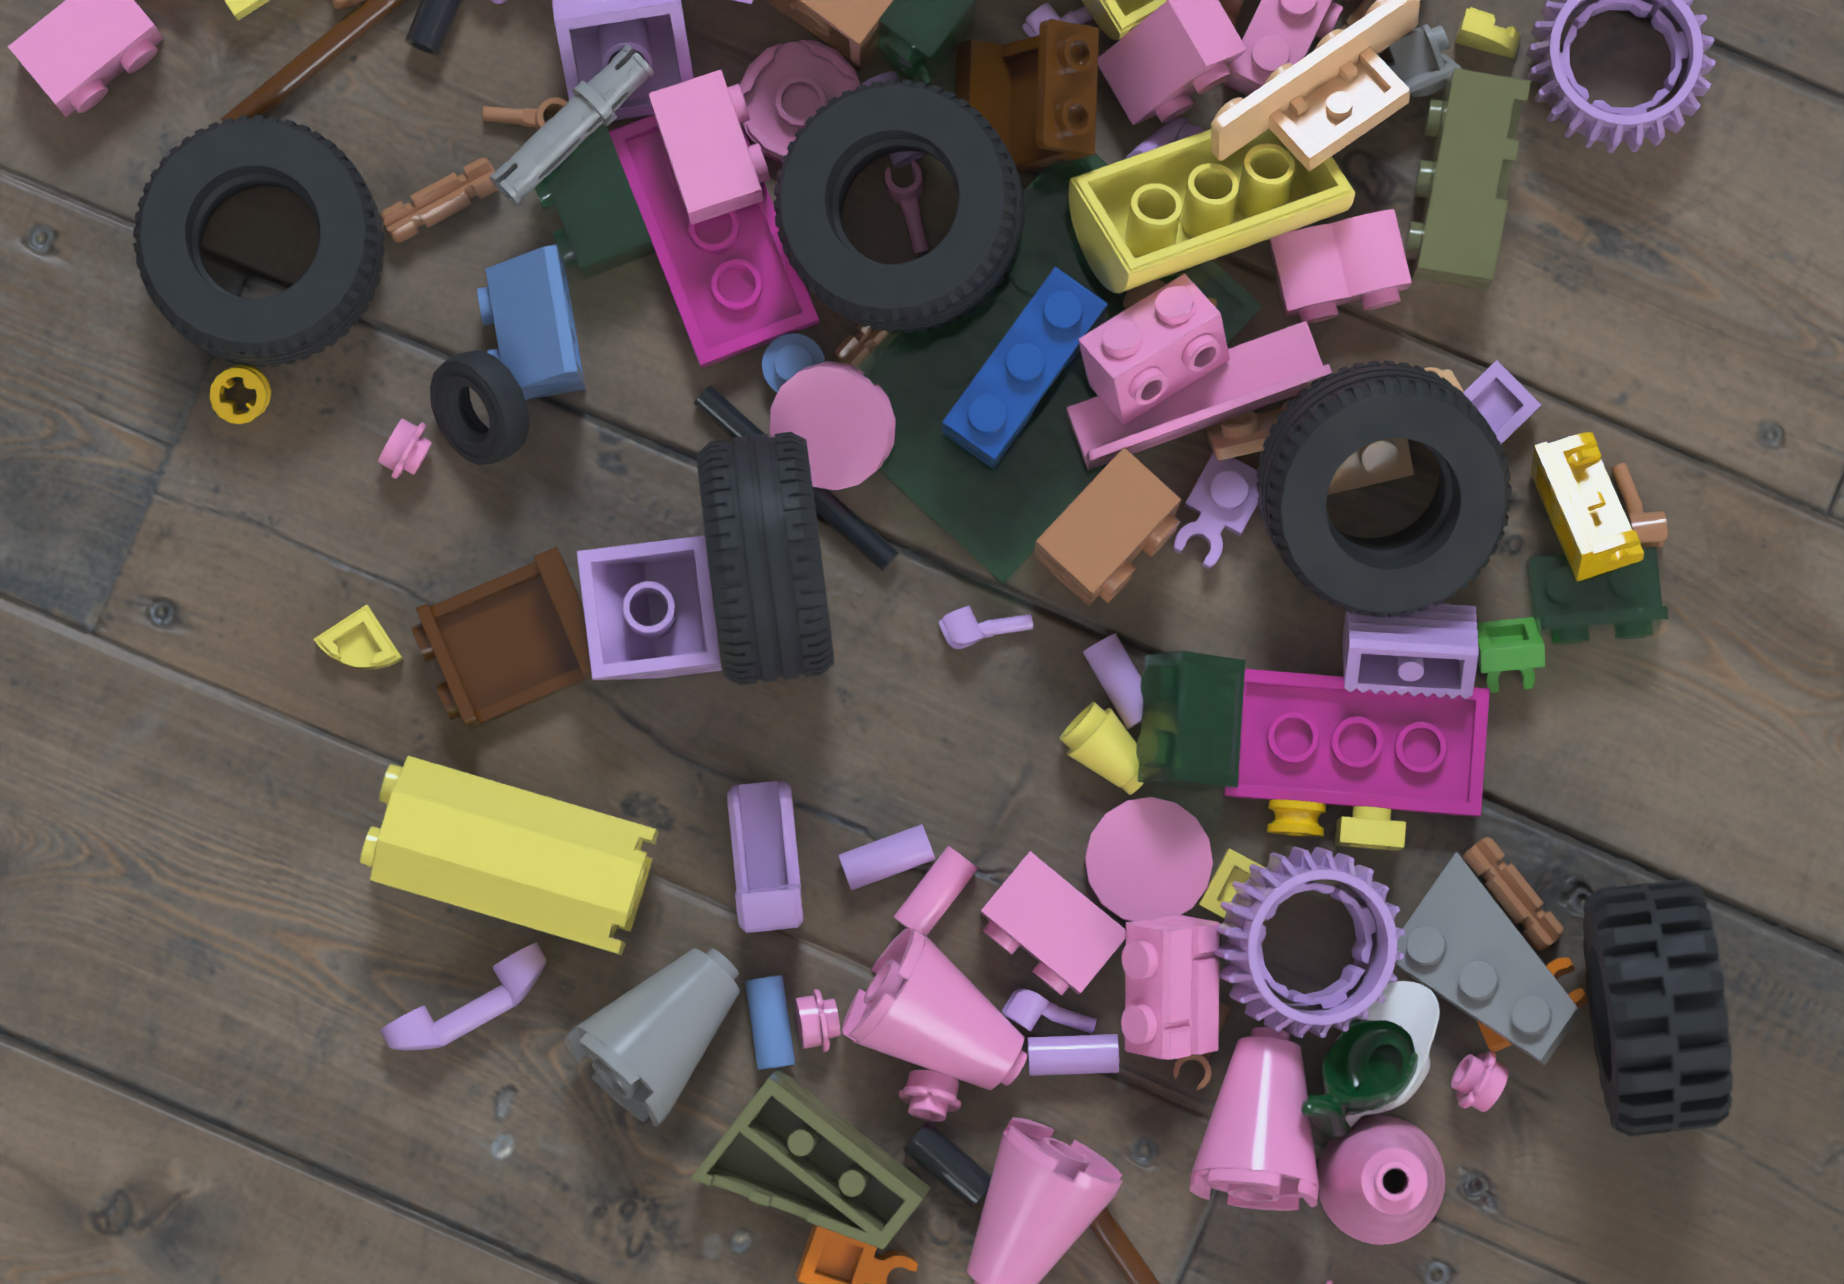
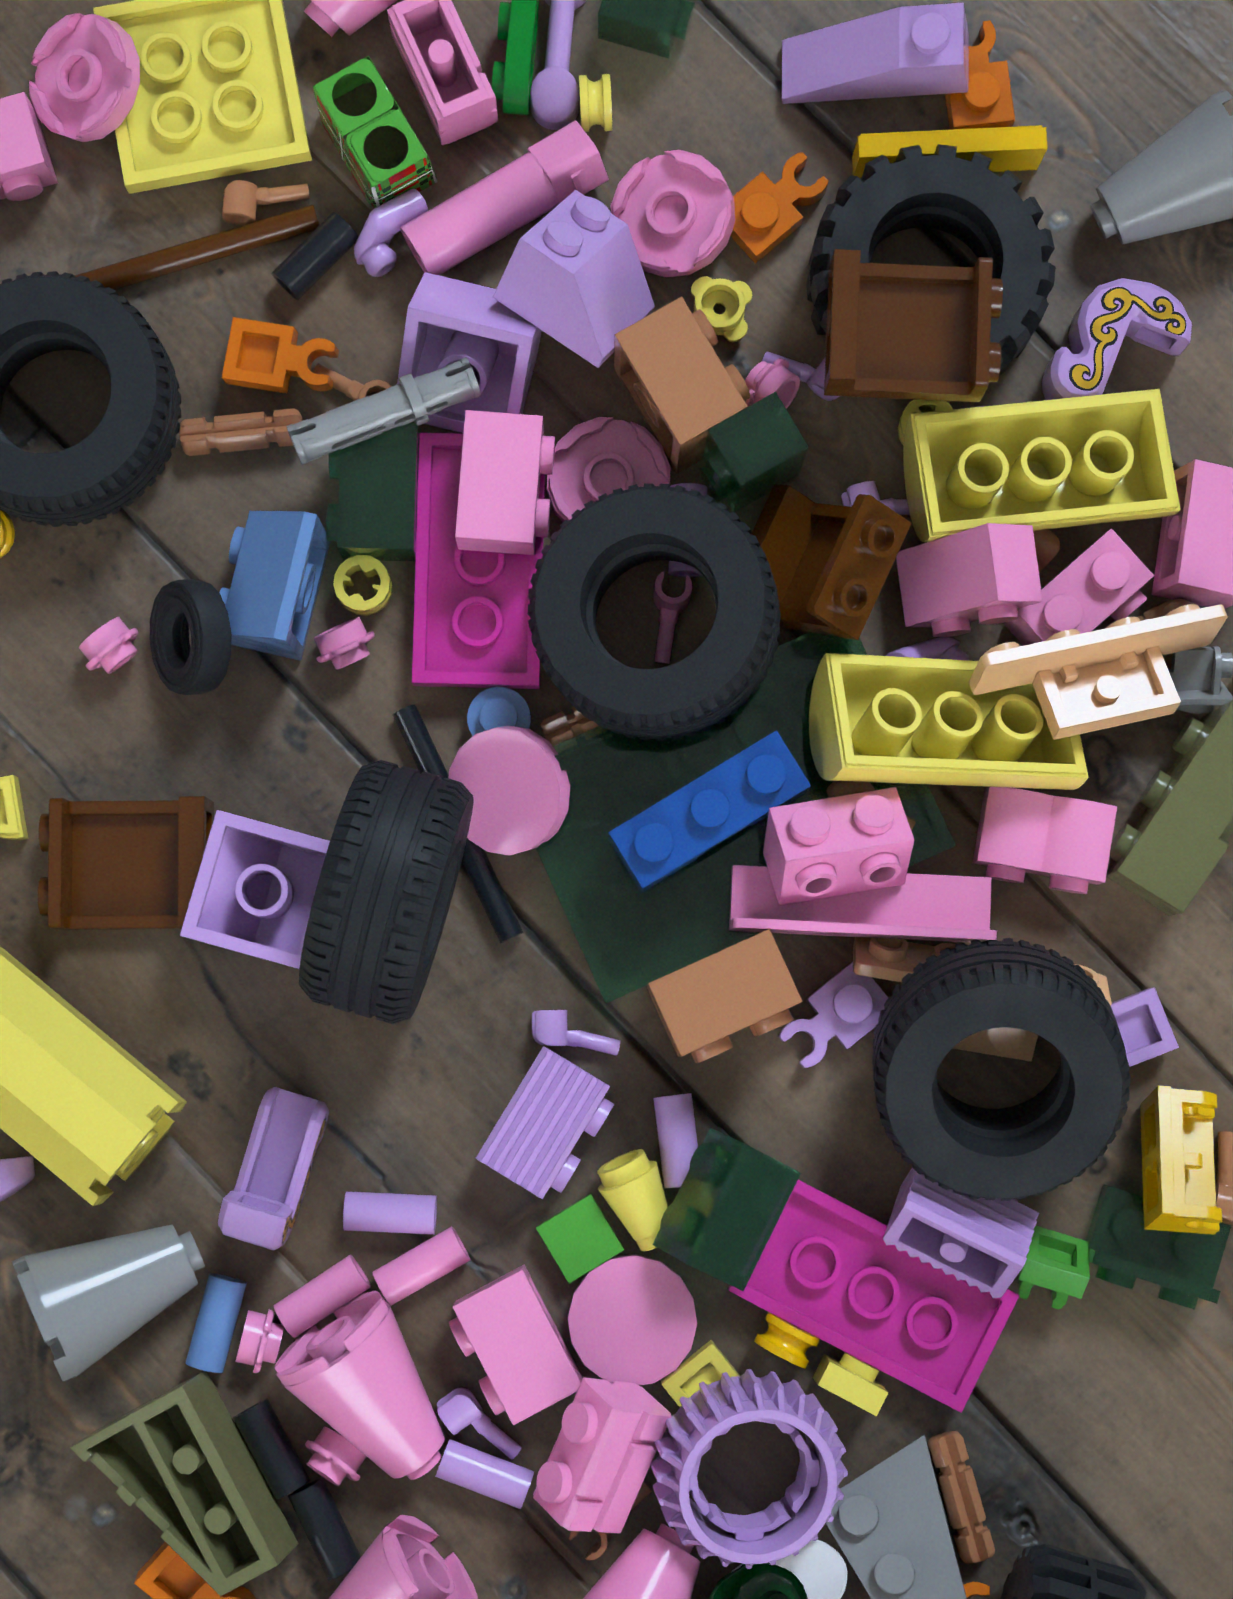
camera: 20 degrees right, 0 degrees up
(435, 120) = (268, 355): none -> orange plate
(613, 276) = (370, 568): none -> light yellow bush
(621, 355) = (344, 643): none -> bright pink plate
(856, 958) = (322, 1296): none -> bright pink axle
(869, 1114) = (271, 1449): none -> black axle
(994, 714) = (544, 1124): none -> lavender brick
(1069, 807) = (580, 1238): none -> bright green tile

